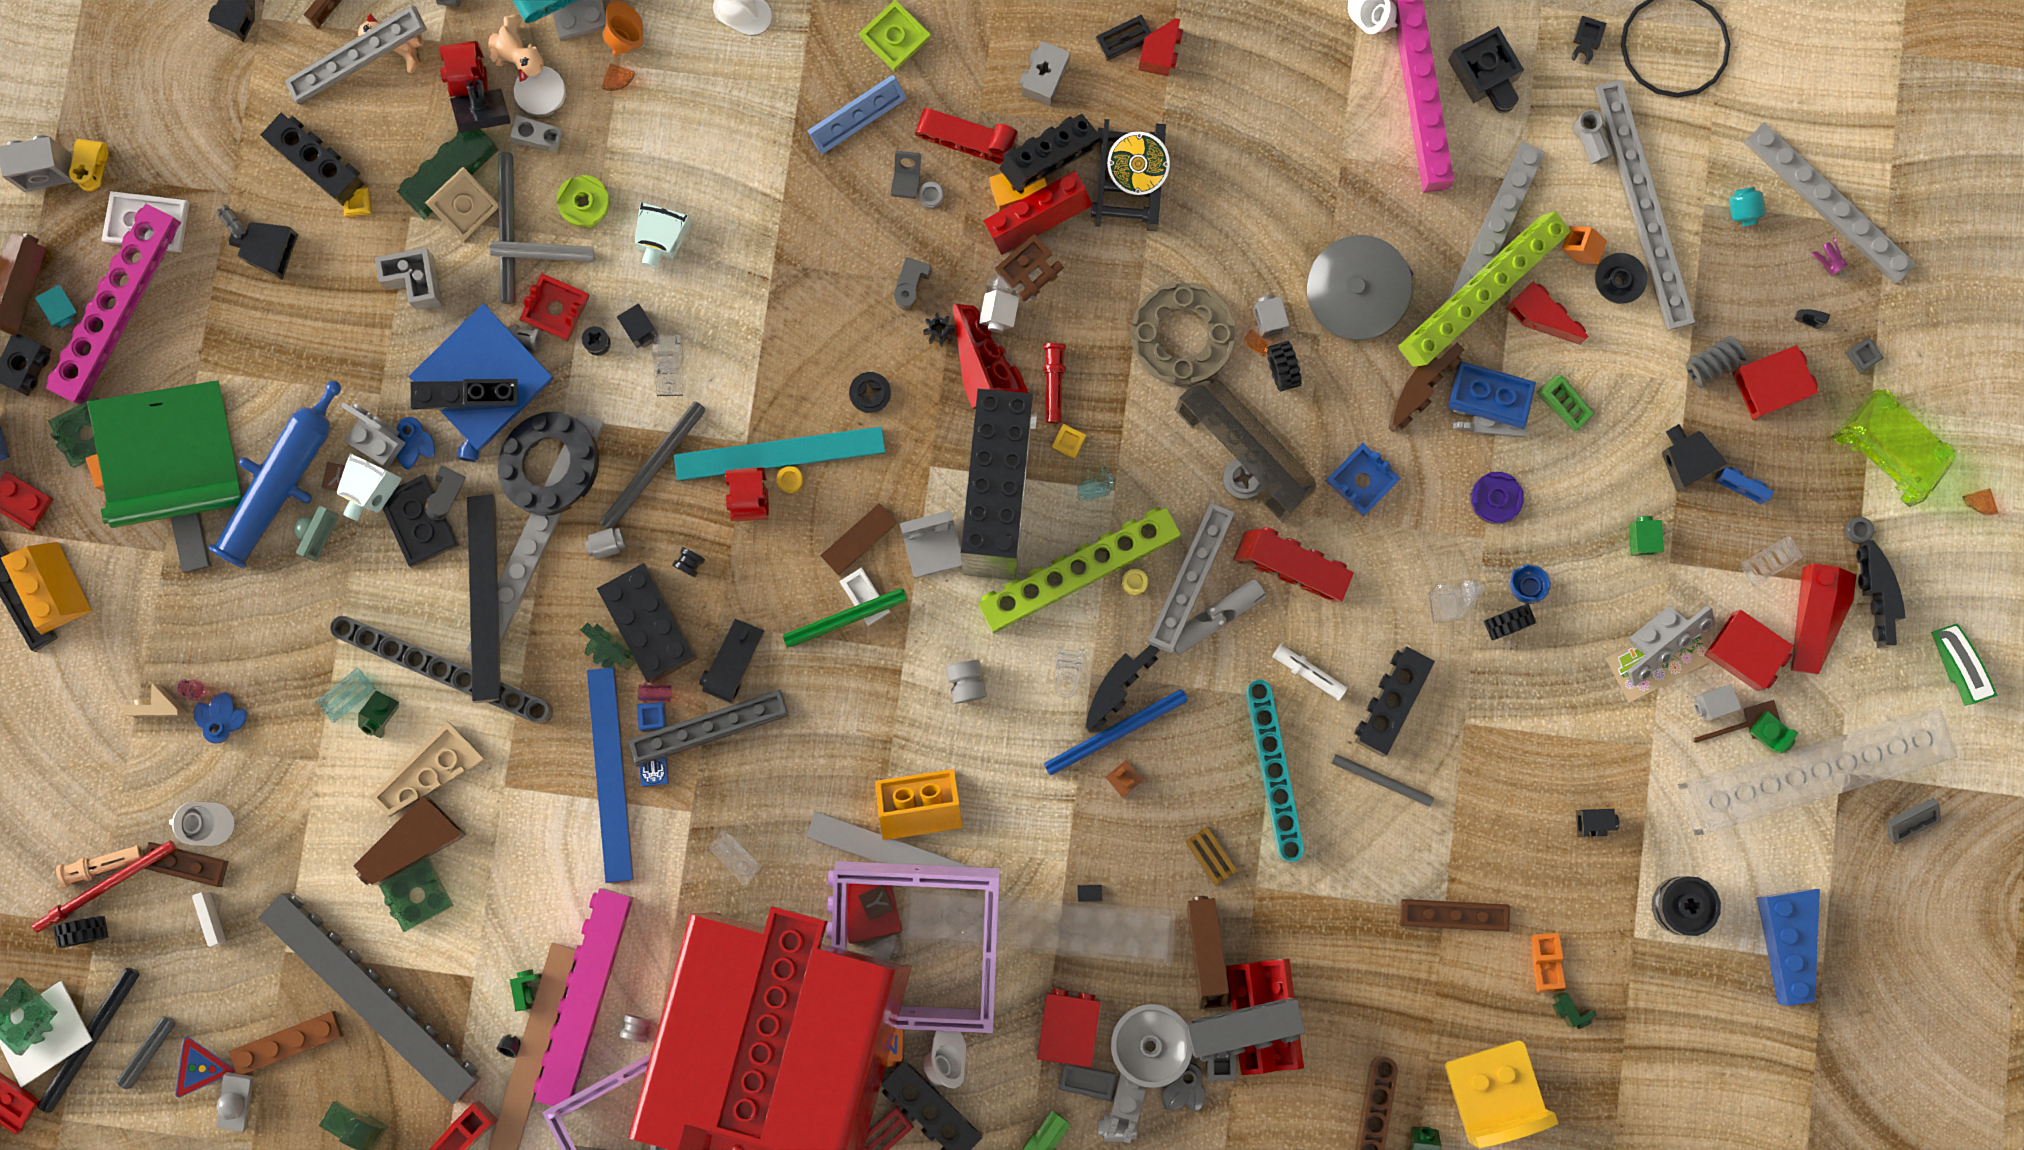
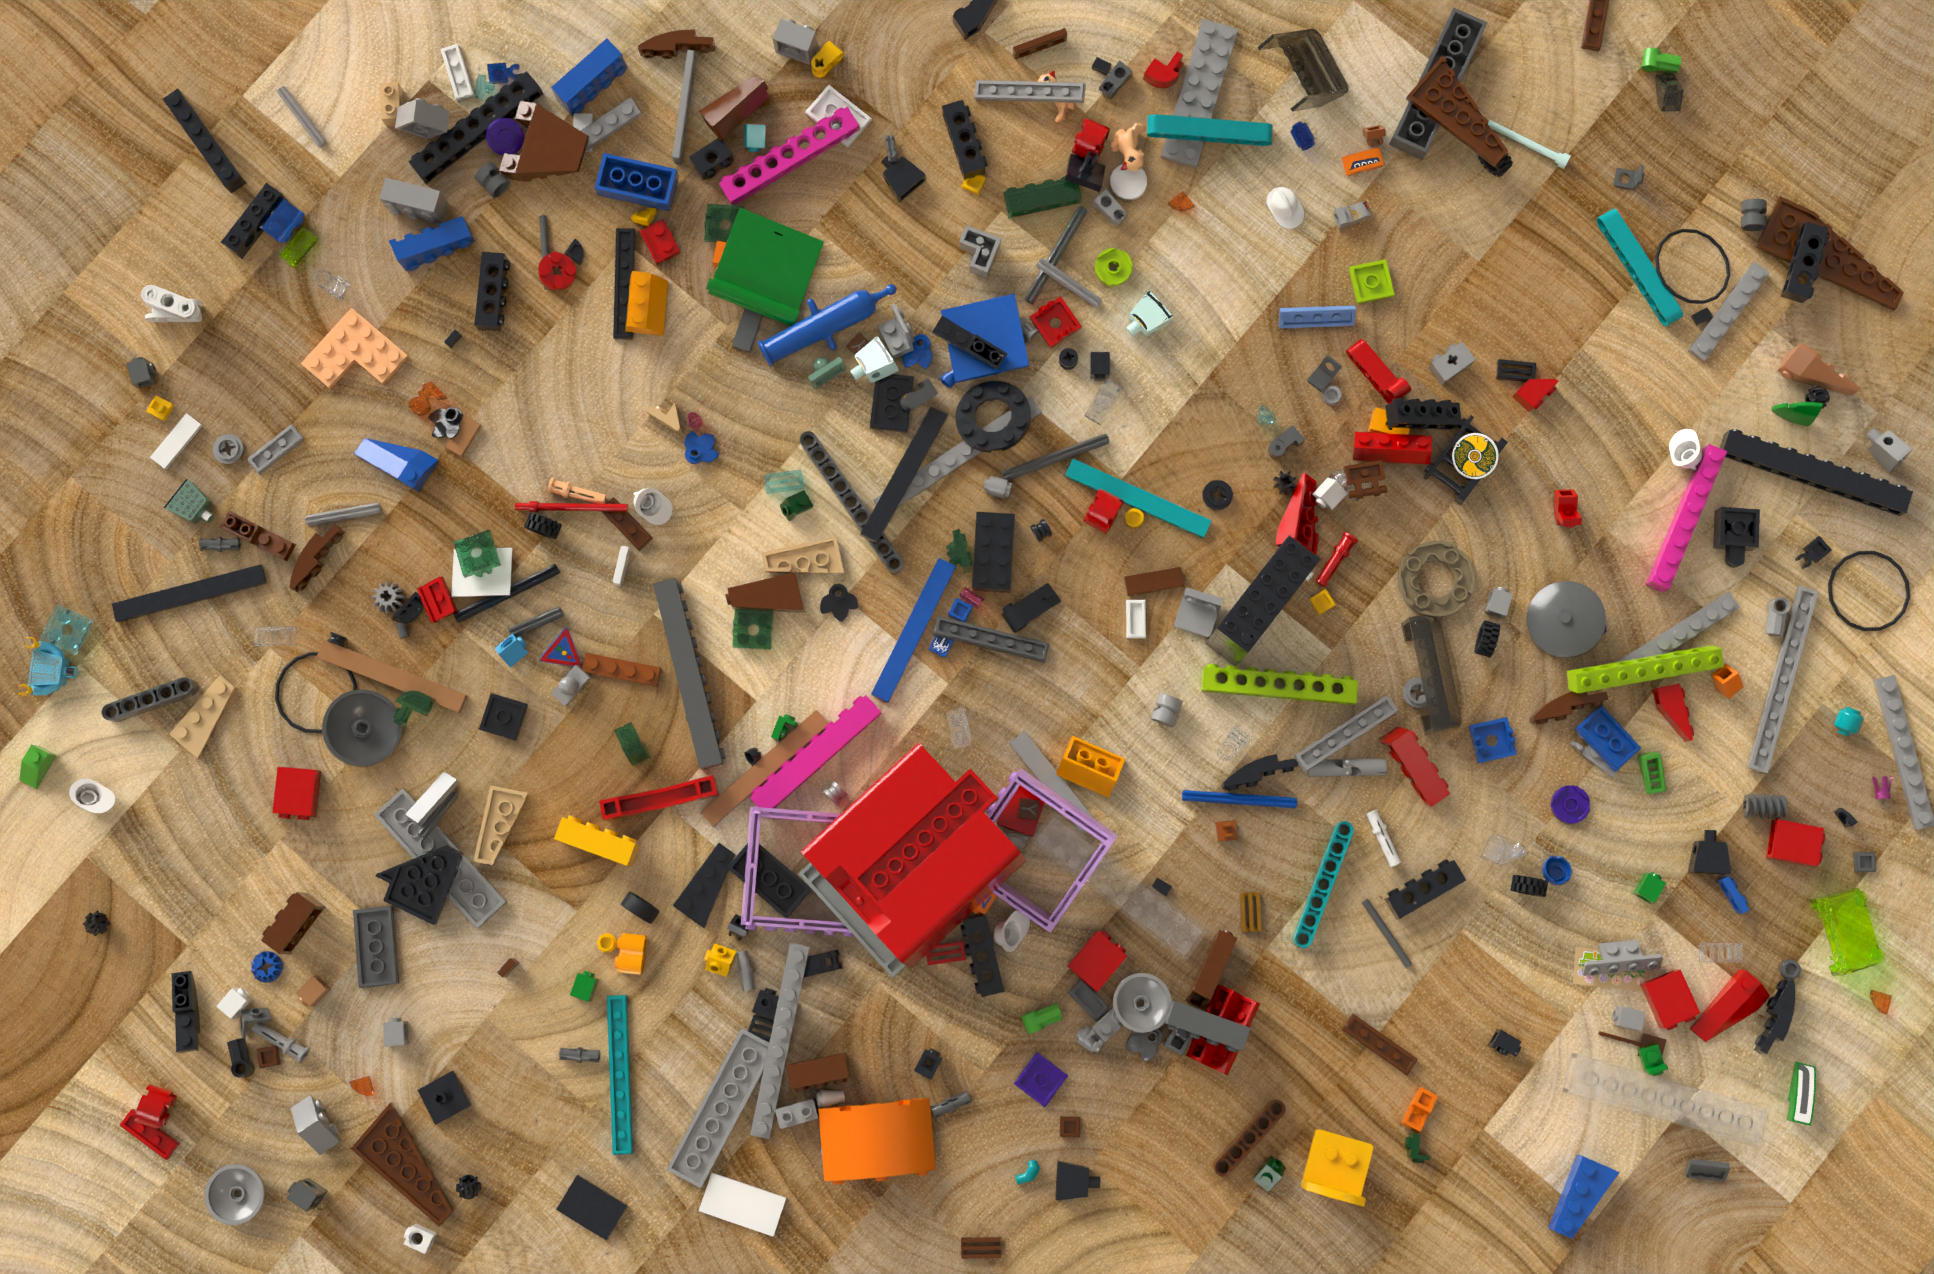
camera: 35 degrees right, 0 degrees up
(135, 1105) = (512, 649): none -> dark azure brick
(462, 204) = (1038, 224): tan tile -> none
(501, 802) = (838, 605): none -> black plate
(622, 28) = (1204, 174): orange piece -> none
(845, 617) = (1116, 624): green axle -> none
(869, 267) = (1265, 416): none -> clear light blue tile
(1092, 489) = (1318, 640): clear light blue bracket -> none
(1135, 582) = (1309, 714): light yellow tile -> none
(1256, 343) = (1478, 613): clear orange tile -> none
(1280, 160) = (1566, 508): none -> red brick
(1629, 270) = (1746, 716): black dish -> none
(1702, 904) = (1540, 1130): black wheel -> none

